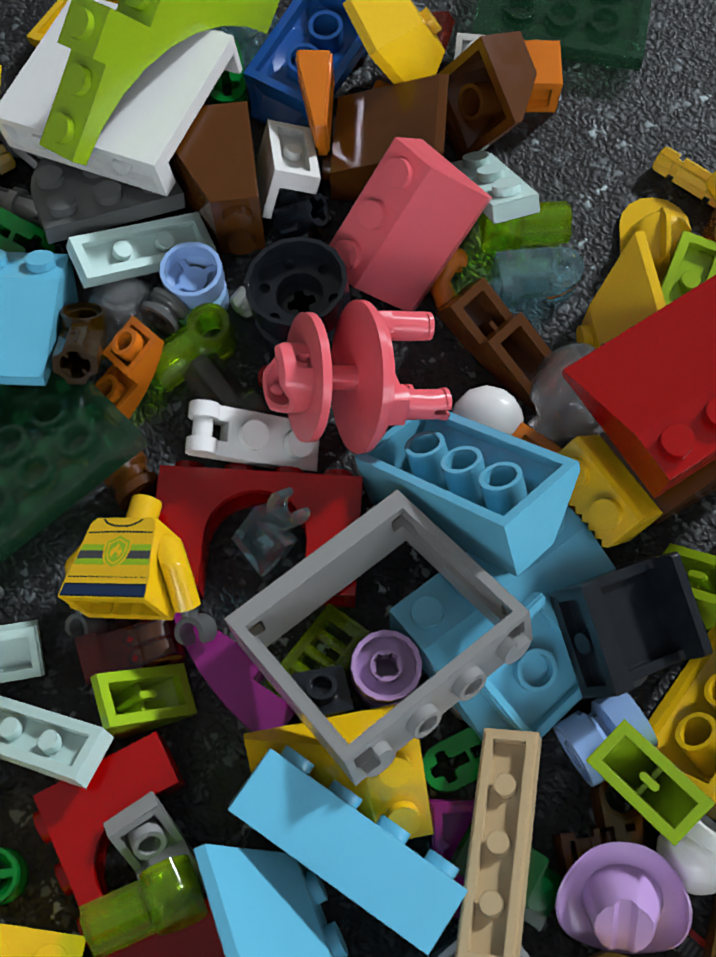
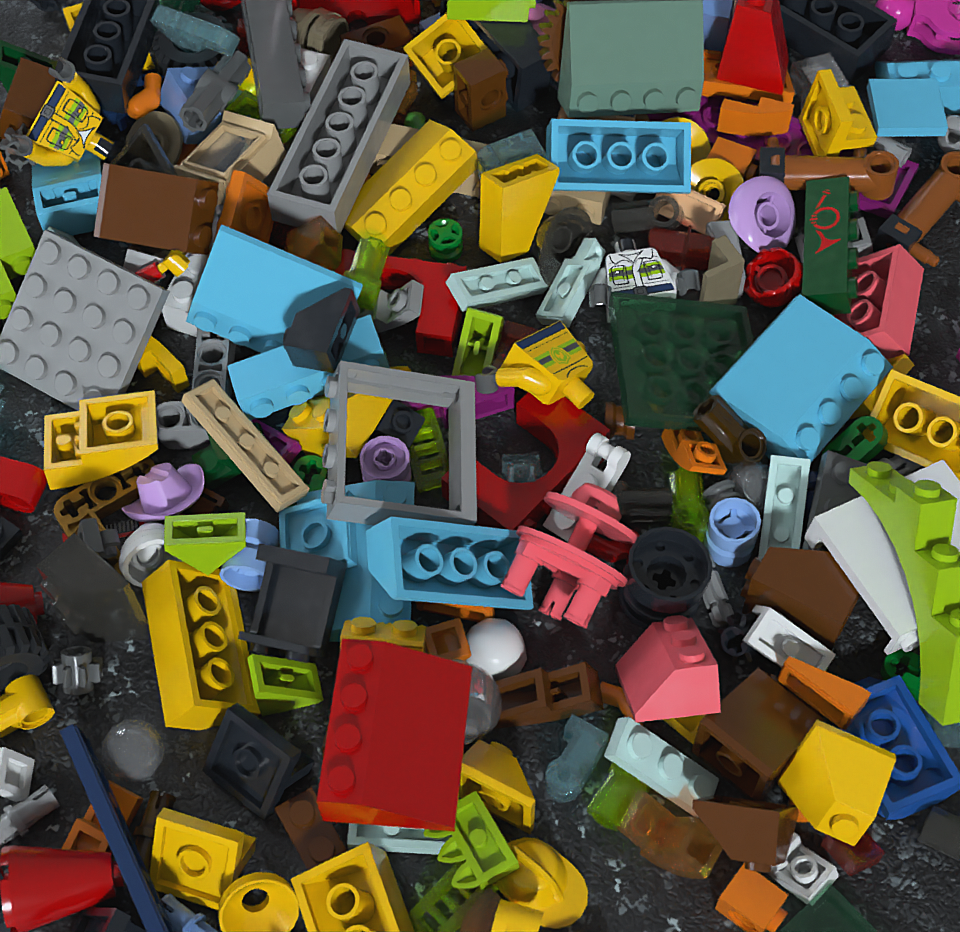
camera: 130 degrees right, 10 degrees down
(312, 839) = (322, 332): none -> black slope
(541, 149) = (668, 841): none -> clear orange brick

